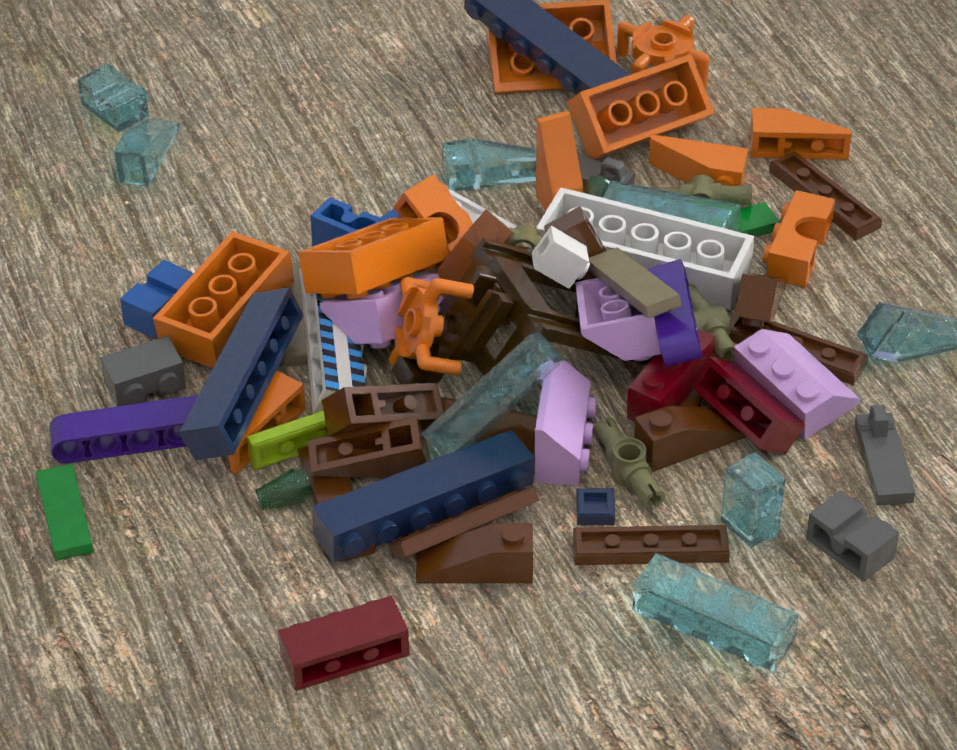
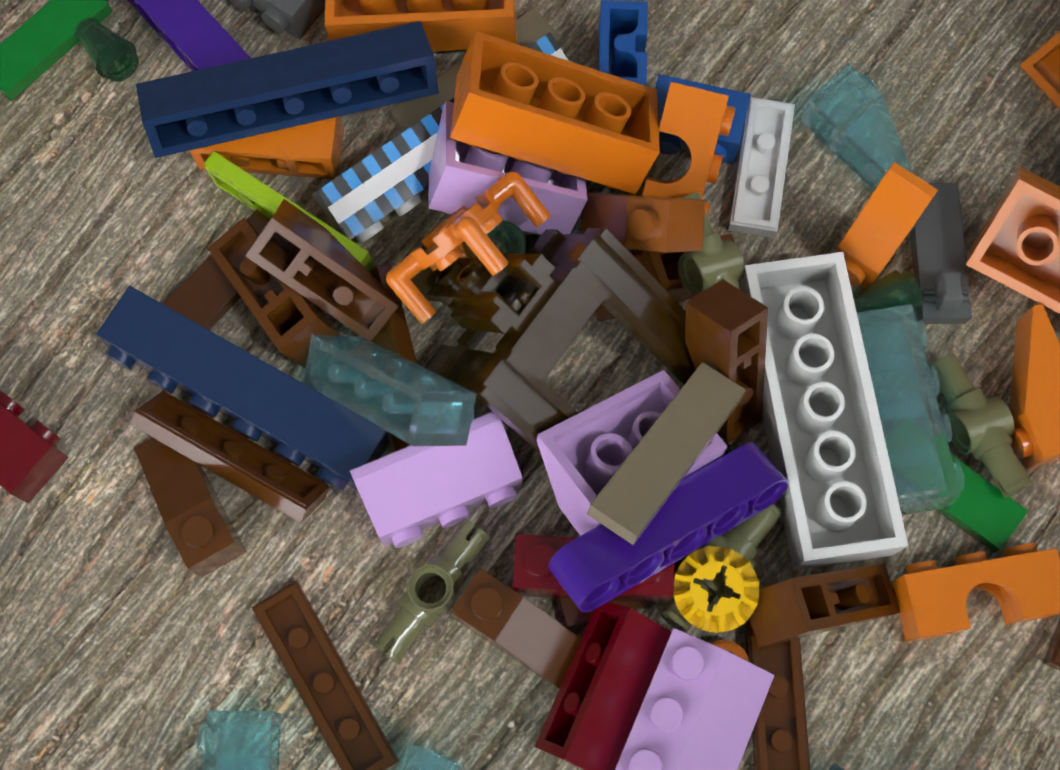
camera: 60 degrees right, 30 degrees up
(107, 477) = (109, 52): none -> clear green cone
(285, 490) = (182, 235): clear green cone -> none
(560, 257) = (670, 333): white brick -> none
(595, 506) = (352, 585): dark blue tile -> none
(724, 328) = (692, 599): none -> yellow gear

